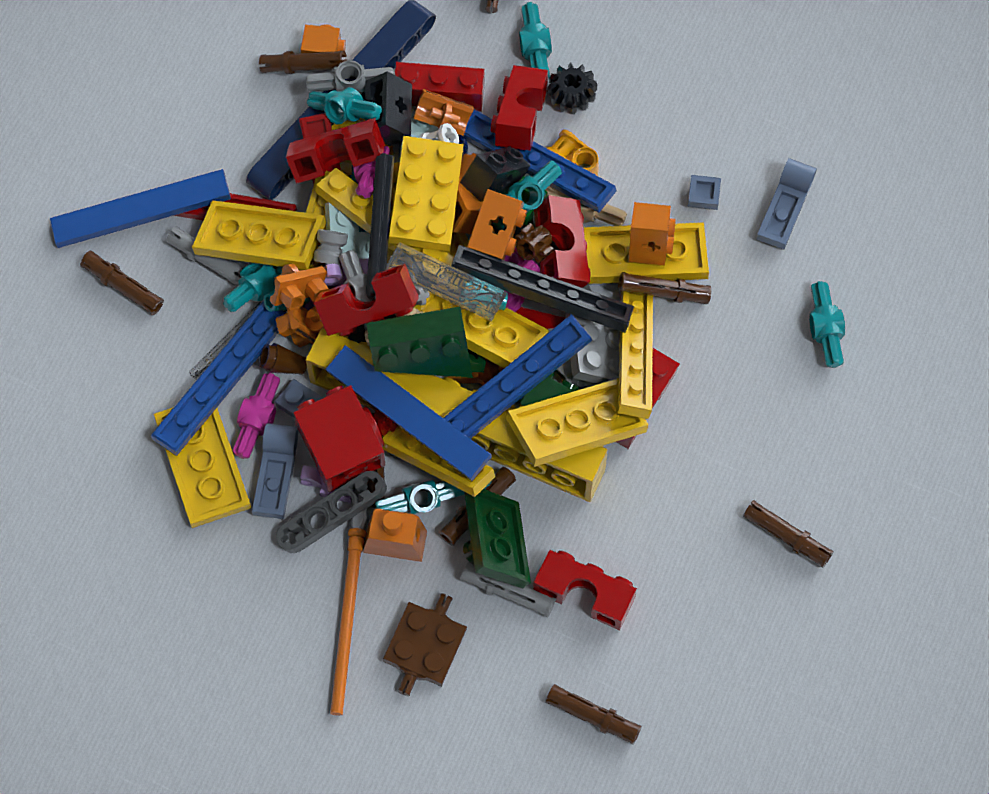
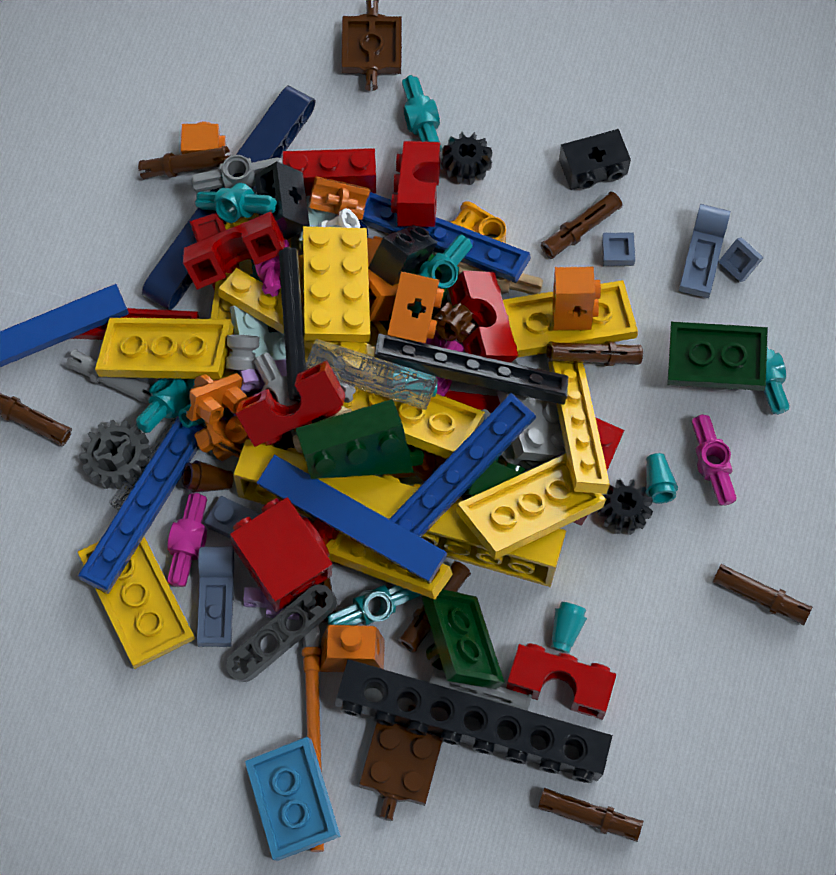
camera: 10 degrees left, 0 degrees up
(200, 328) = (100, 459): none -> dark grey gear
(319, 663) = (292, 799): none -> dark azure plate
(486, 598) = (591, 744): none -> black brick
(599, 539) = (567, 625): none -> teal cone
(663, 170) = (572, 232): none -> reddish brown pin
(671, 424) = (637, 510): none -> black gear
(680, 103) = (594, 159): none -> black brick
(708, 415) = (659, 479): none -> teal cone
(762, 389) = (716, 473): none -> dark pink axle
(780, 304) = (717, 356): none -> dark green plate
(820, 216) = (741, 259): none -> sand blue plate

